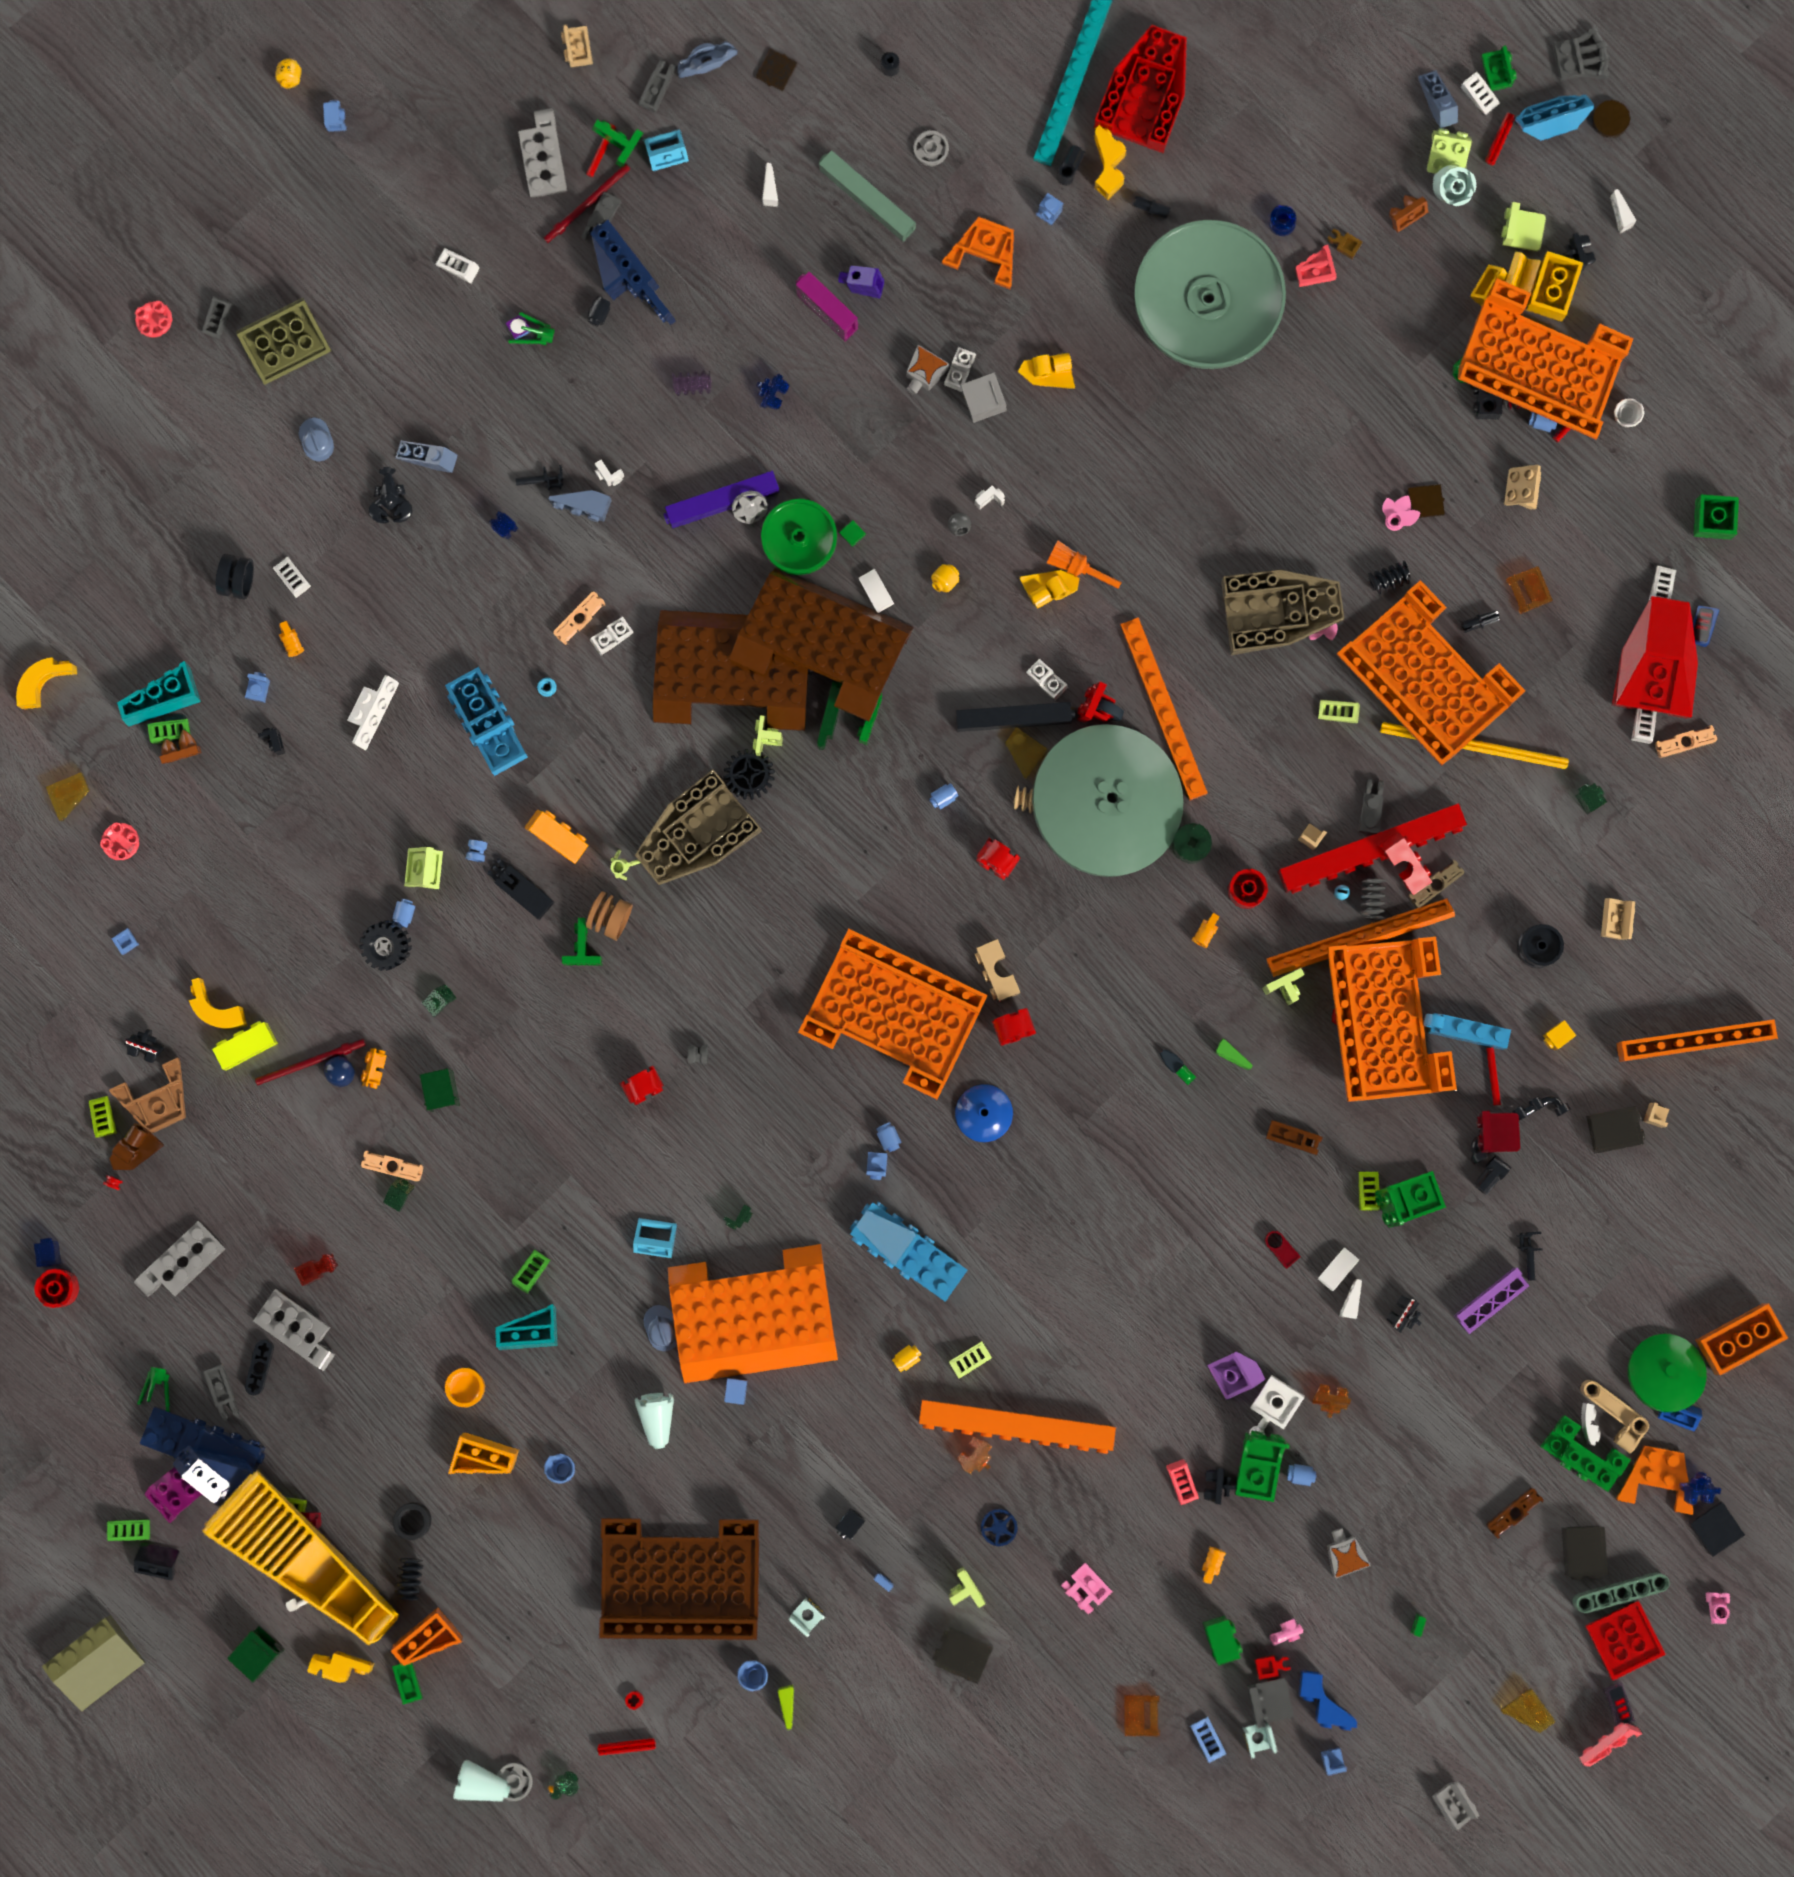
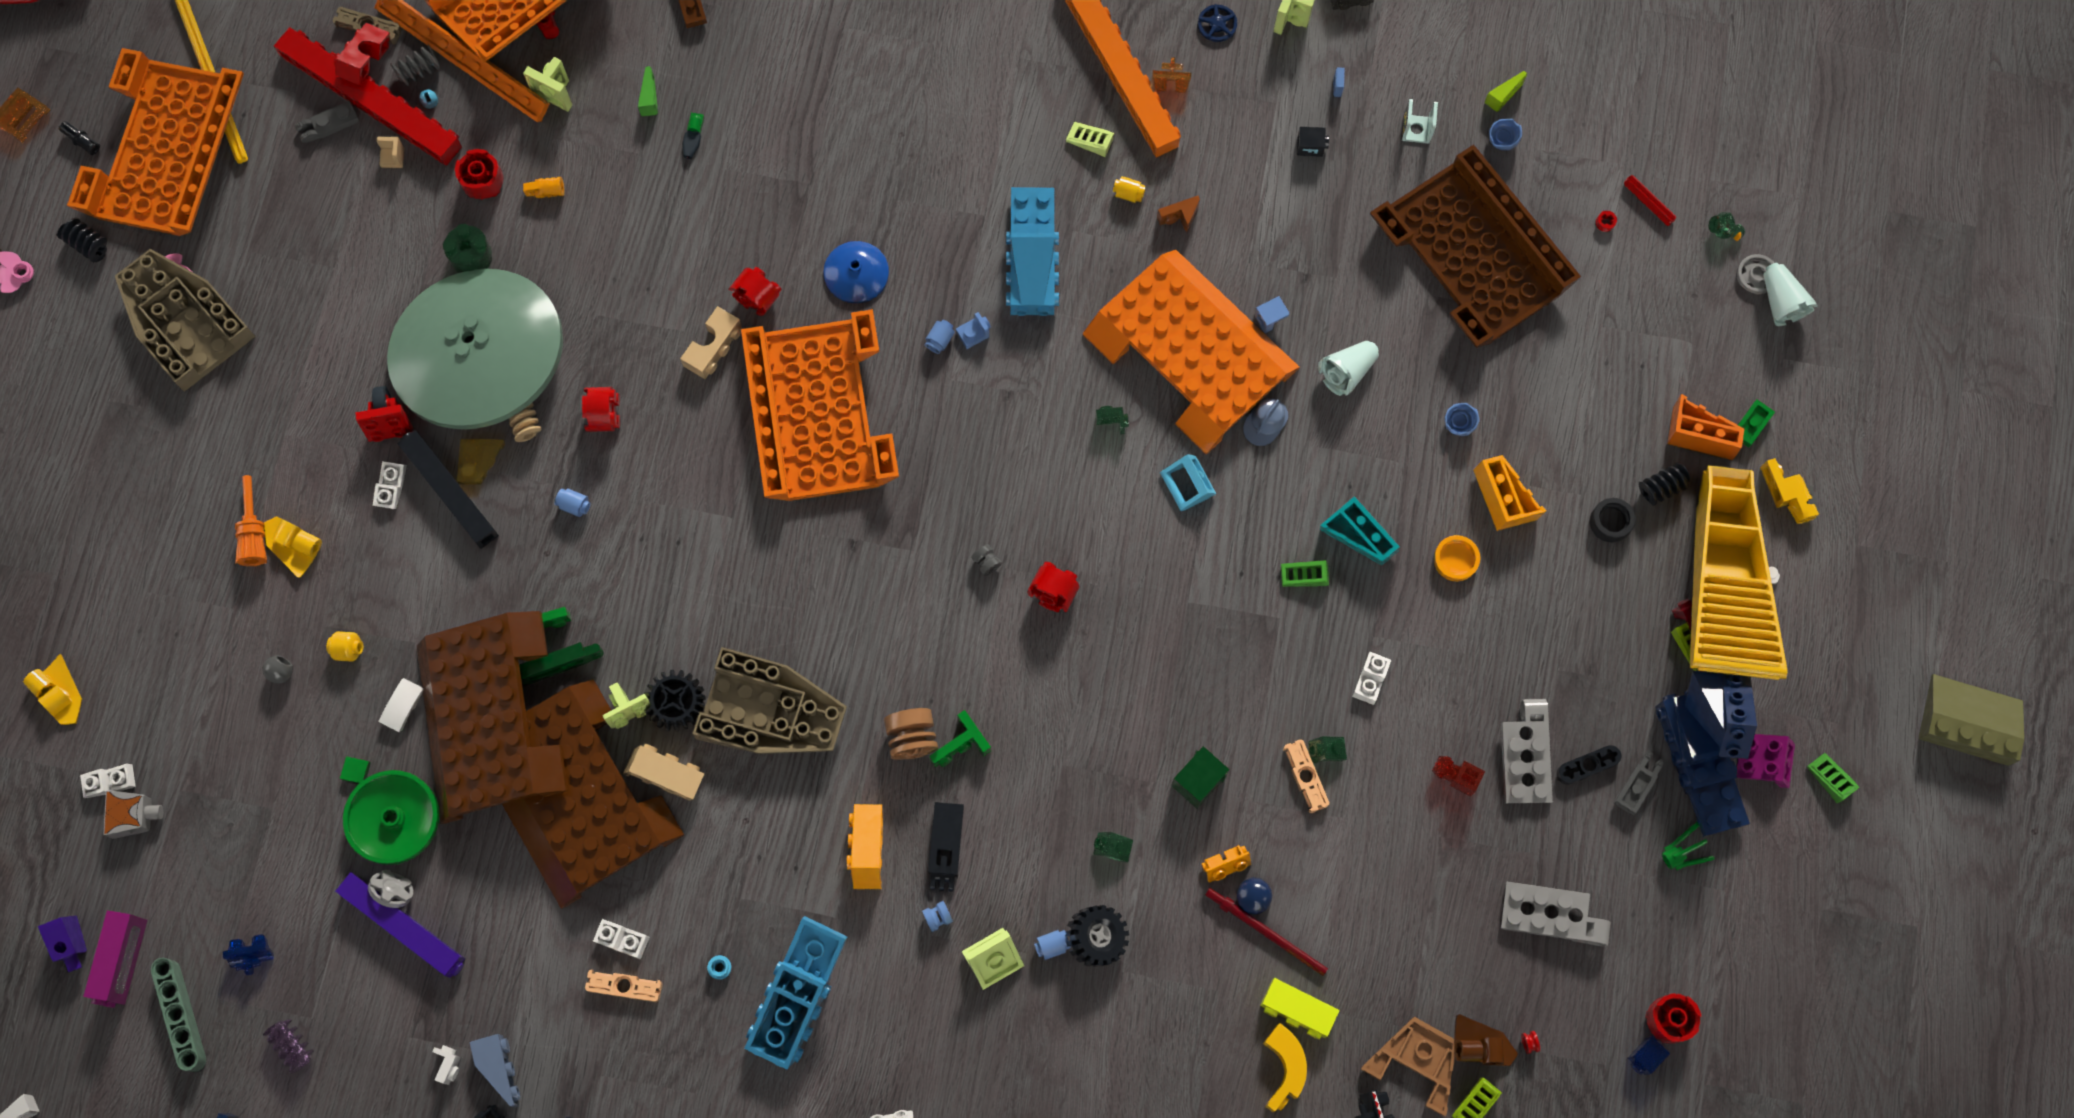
camera: 130 degrees left, 10 degrees down
(156, 1561) = (1837, 730): black panel -> none
(255, 1654) = (1843, 572): dark green piece -> none
(425, 1262) = (1371, 678): none -> white slope
(621, 866) = (852, 754): yellowish green plant -> none
(703, 733) = (664, 771): none -> tan wedge
(757, 318) = (186, 1022): none -> sand green beam
(860, 1388) = (1182, 210): none -> dark orange slope
(983, 397) = (123, 732): light grey piece -> none
(985, 497) = (232, 664): white bracket -> none
(1163, 709) = (348, 362): orange plate -> none
(1355, 714) = (243, 190): yellowish green slope -> none

